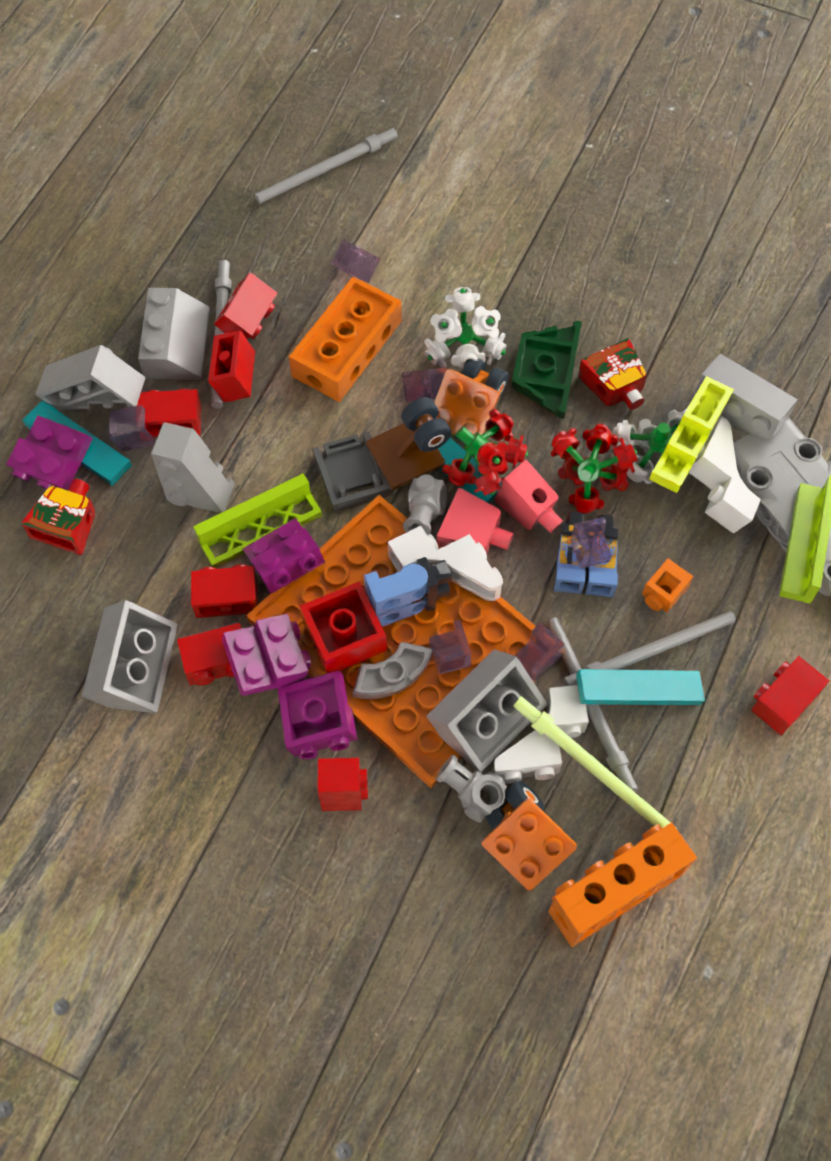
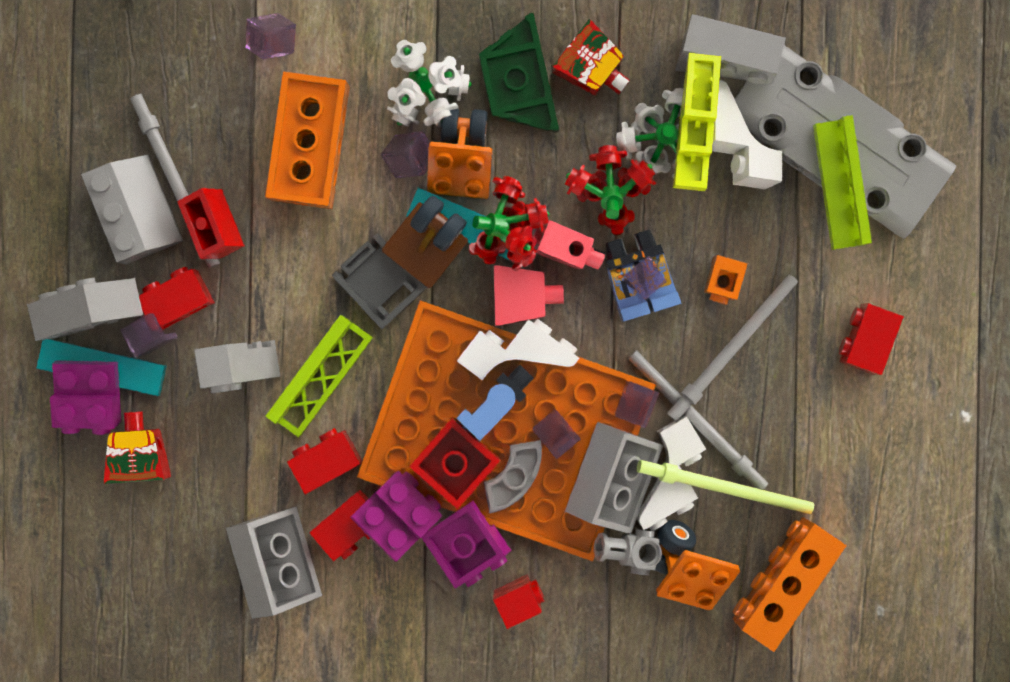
camera: 25 degrees left, 25 degrees up
(247, 307) = (190, 148): brick -> none
(284, 555) = (361, 404): magenta plate -> none
(426, 502) = (469, 292): light grey connector -> none
(639, 687) = (737, 393): tile -> none

